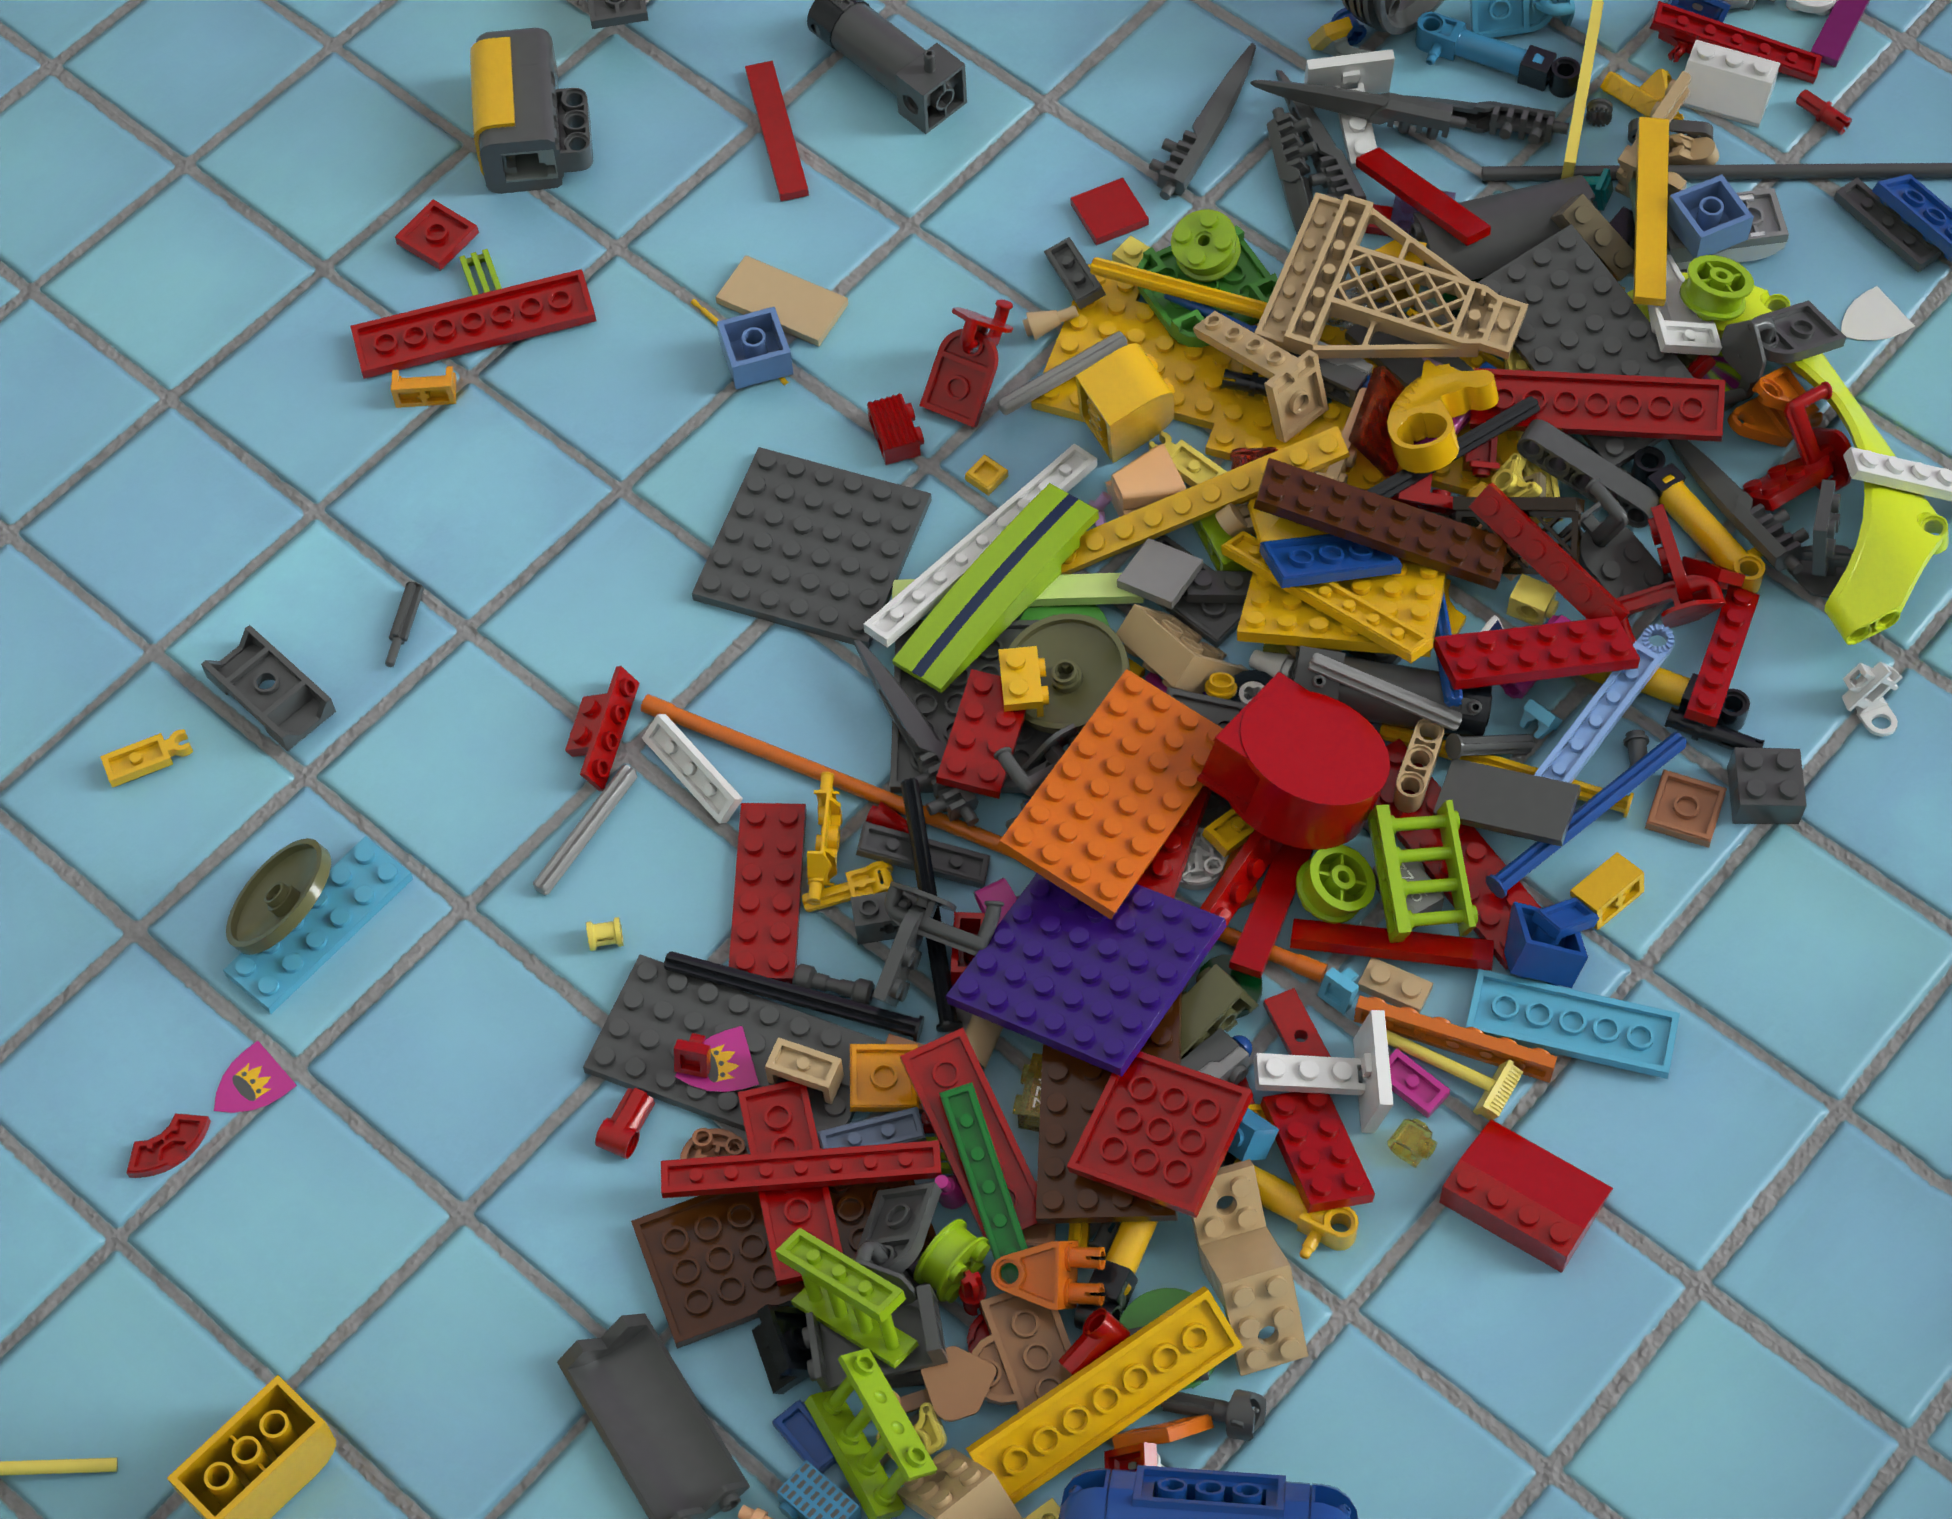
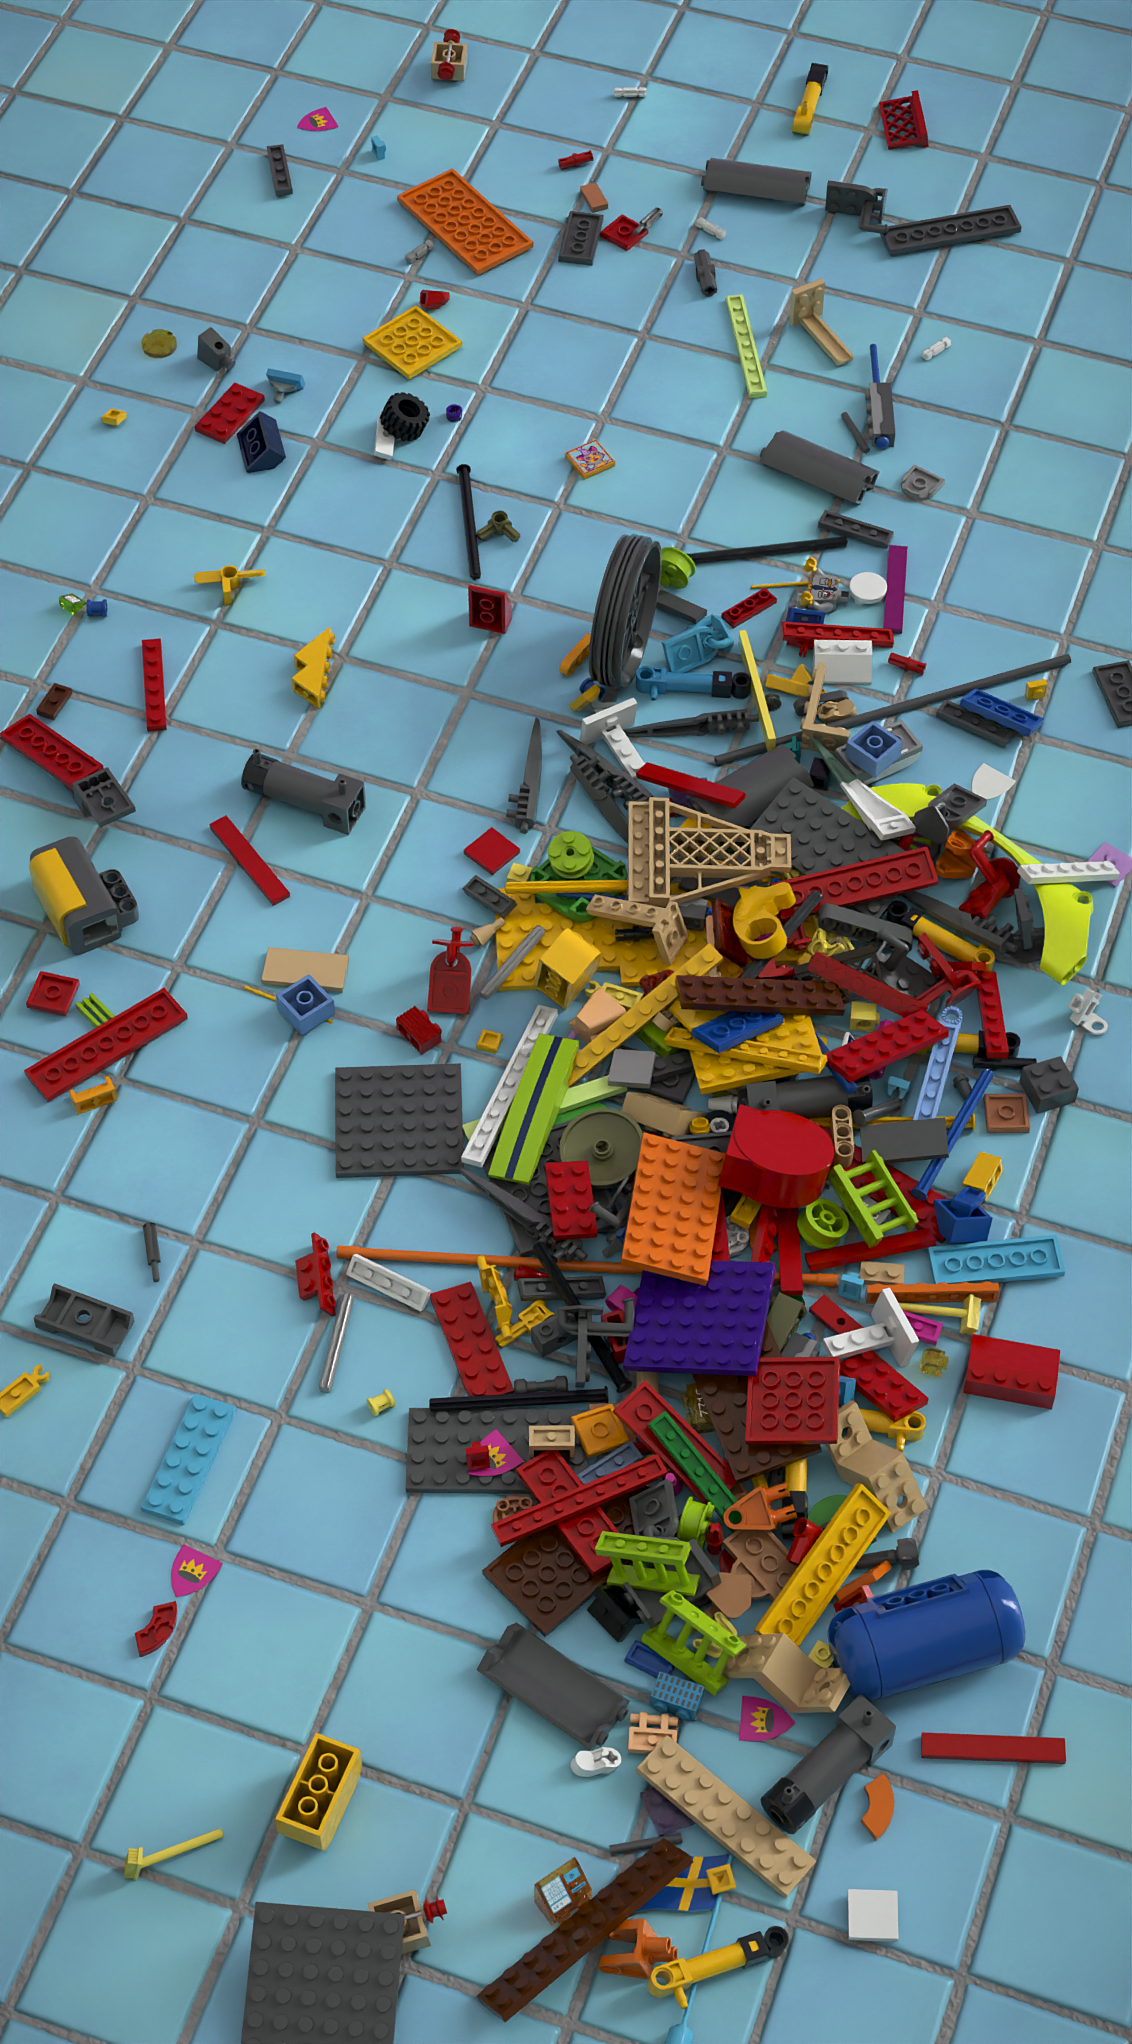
camera: 25 degrees left, 5 degrees down
(278, 896) = (162, 1446): olive dish -> none
(621, 1131) = (449, 1517): red piece -> none
(1021, 679) = (581, 1159): yellow bracket -> none
(1374, 107) = (635, 737): dark grey piece -> none
(1385, 691) = (805, 1096): light grey axle -> none
(1598, 234) = (807, 775): dark tan brick -> none
(1651, 212) = (838, 755): yellow tile -> none
(1716, 288) = (898, 791): lime wheel -> none

